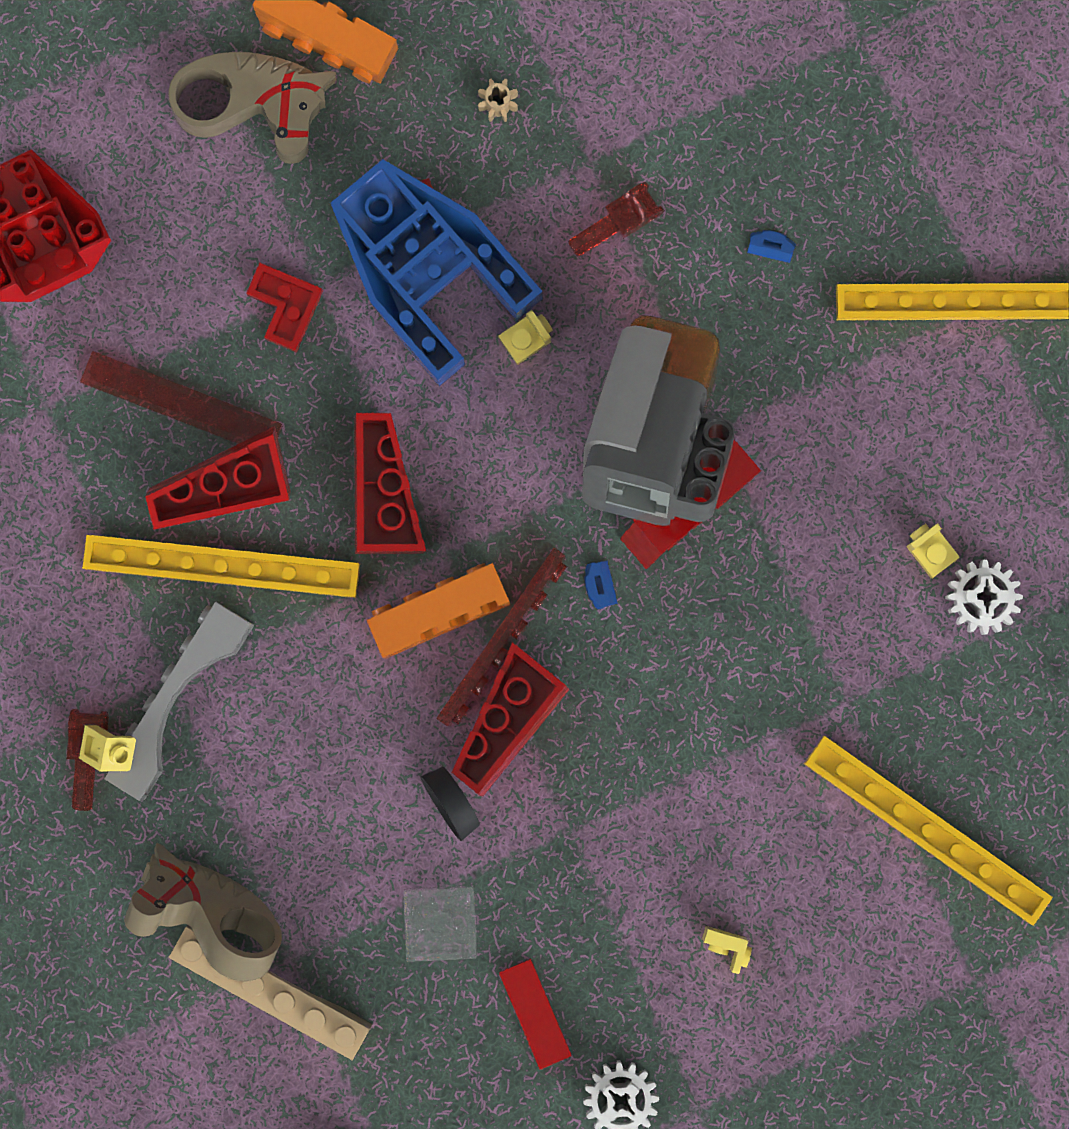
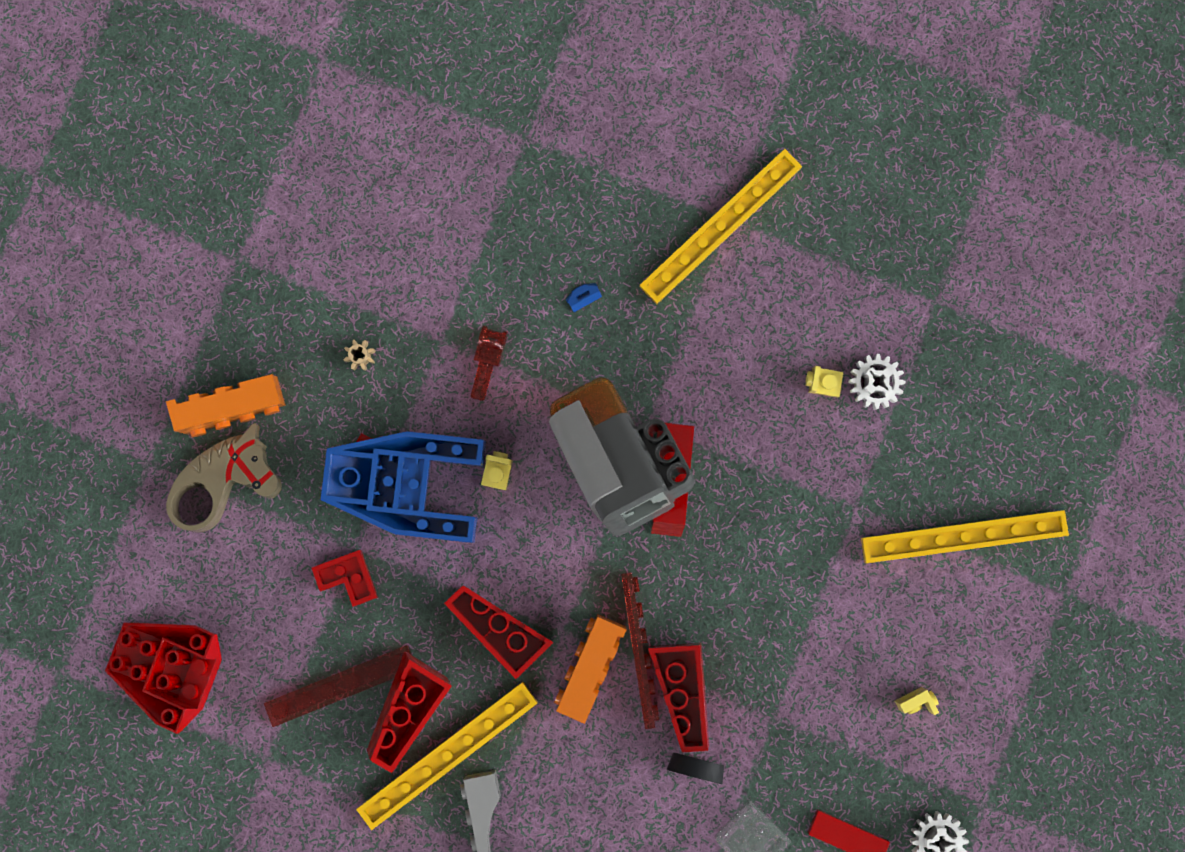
camera: 45 degrees left, 0 degrees up
(606, 594) = (668, 572): blue piece -> none

